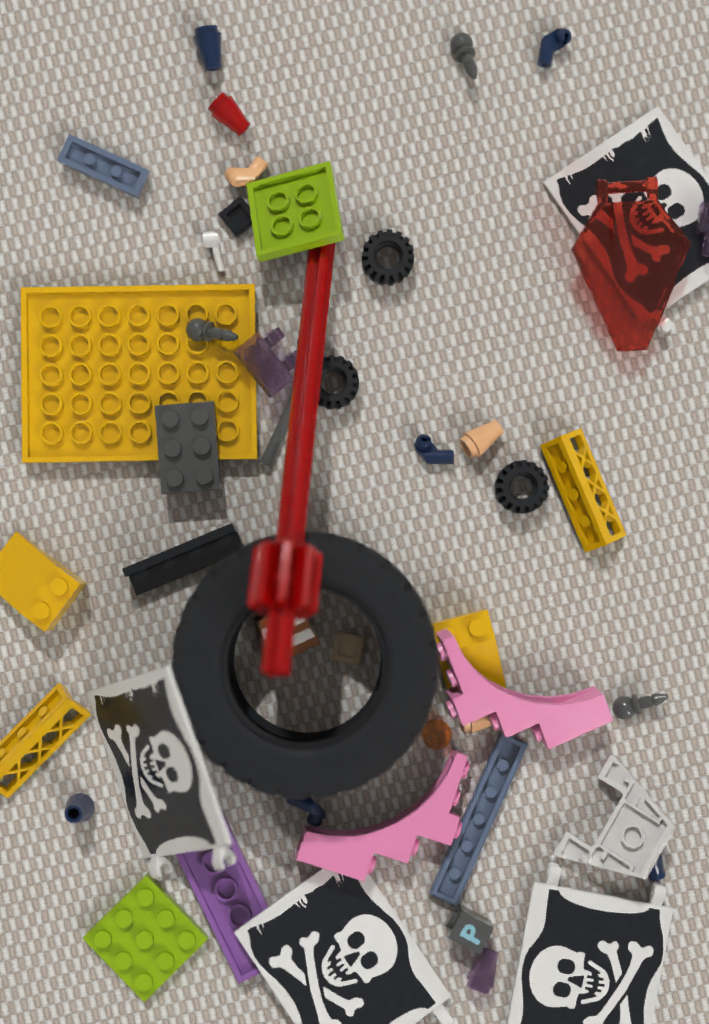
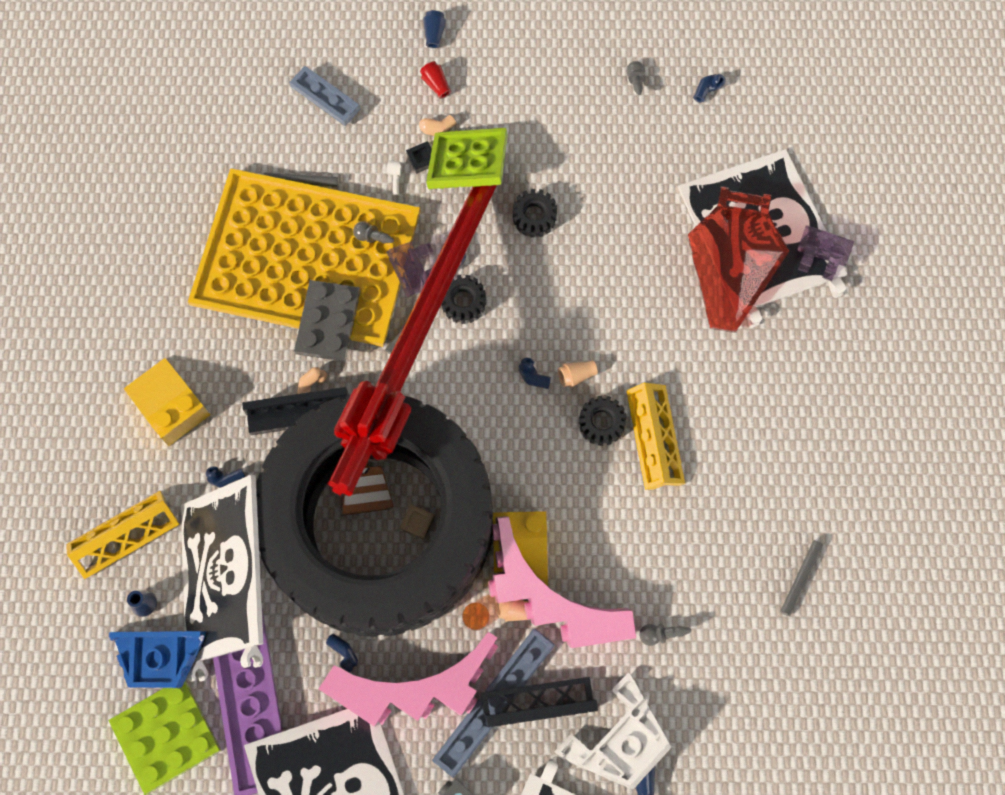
camera: 20 degrees right, 15 degrees down
(109, 278) = (307, 179): none -> dark grey bar
(113, 863) = (157, 657): none -> blue wing
(125, 654) = (220, 478): none -> dark blue arm
(185, 518) = (309, 378): none -> light nougat arm
(531, 820) = (538, 713): none -> black fence

